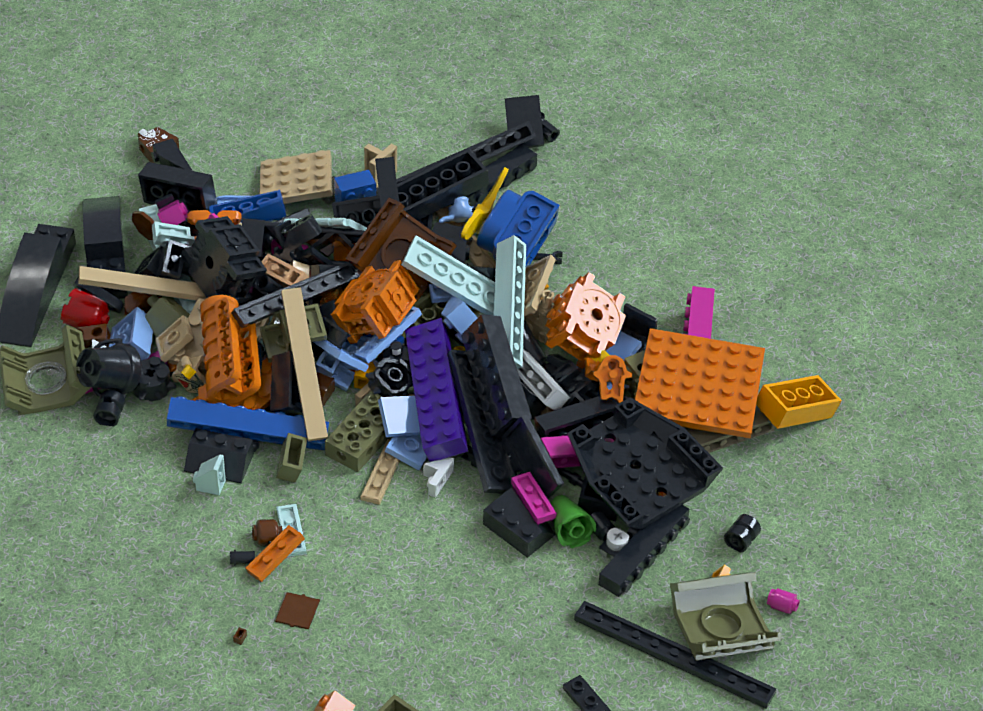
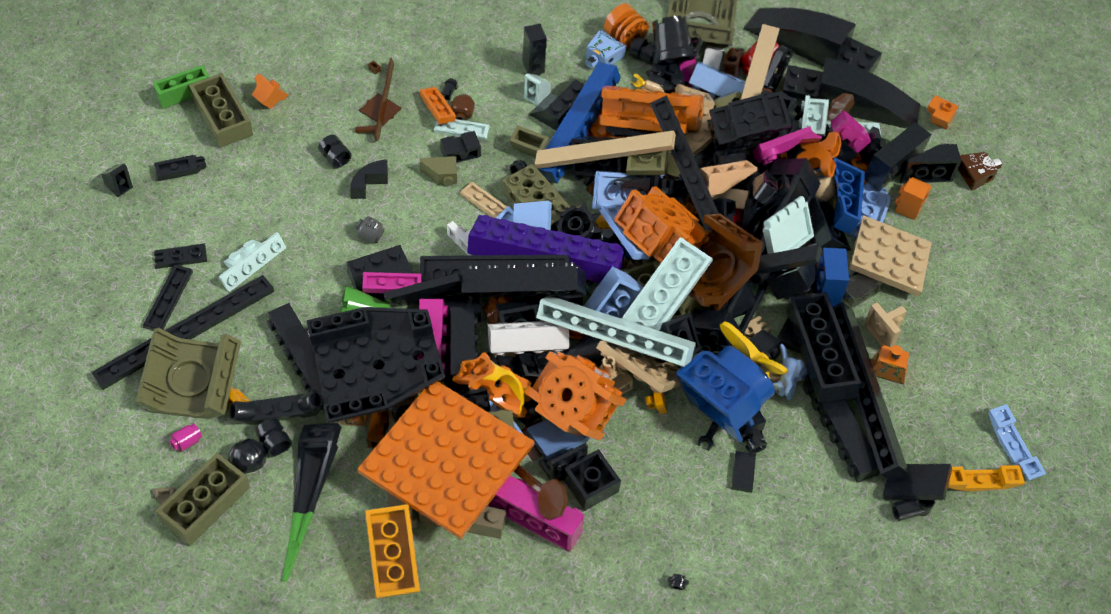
camera: 110 degrees right, 10 degrees up
(86, 424) = (625, 24): none -> orange wheel
(97, 174) = (942, 111): none -> orange brick
(124, 443) = (604, 50): none -> light blue torso
(167, 481) = (534, 49): none -> black brick
(222, 172) = (912, 197): none -> orange brick
(323, 517) = (464, 147): none -> black brick
(326, 462) = (517, 165): none -> black plate
(332, 596) = (377, 128): none -> reddish brown piece
(361, 521) = (440, 169): none -> olive slope
(385, 617) = (334, 151): none -> black wheel
(395, 576) = (369, 174): none -> black brick
(414, 151) = (891, 363): none -> orange torso
(462, 75) = (1012, 443): none -> light blue slope
(470, 550) = (369, 229): none -> dark grey head
(482, 87) = (981, 480): none -> light orange slope
(560, 641) = (250, 259): none -> light aqua bracket
(571, 229) = (743, 471): none -> black tile
(643, 688) = (168, 298): none -> black tile
(649, 301) = (591, 479): none -> black brick
(696, 240) = (678, 582): none -> black plate
(699, 299) = (551, 494): none -> reddish brown piece
(704, 514) = (281, 407): none -> black plate
(737, 496) = (315, 456): none -> black plate
(772, 545) = (247, 455): none -> black hair
(834, 555) = (203, 499): none -> olive brick
(845, 593) = (163, 494): none -> dark tan tile

